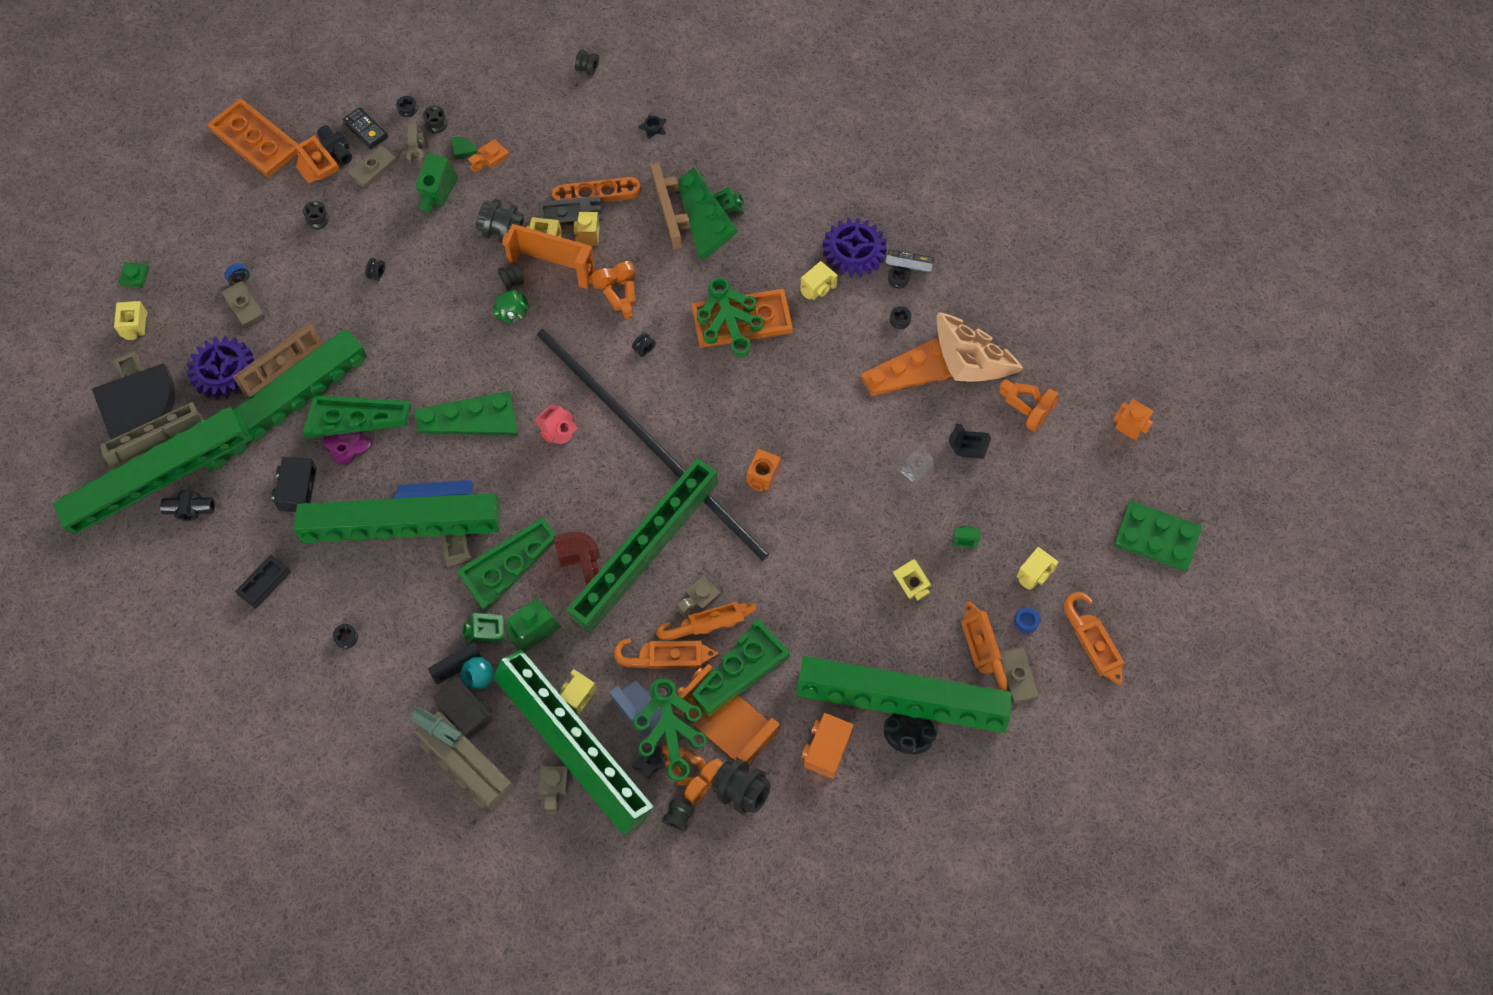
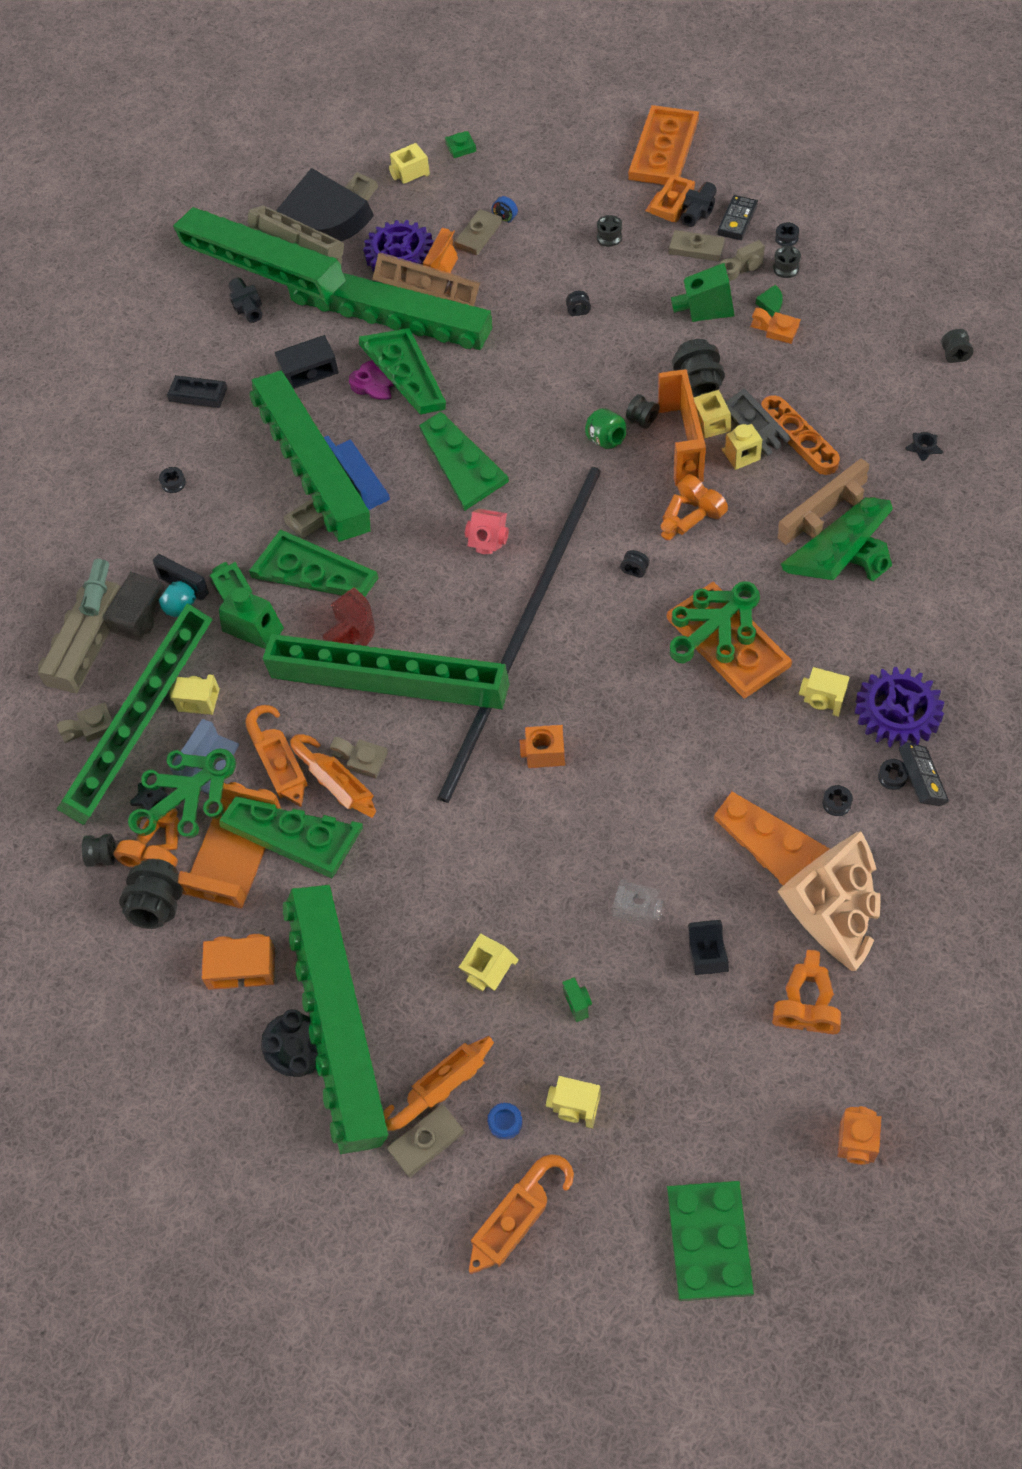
camera: 70 degrees right, 5 degrees down
(252, 335) = (442, 253): none -> orange slope

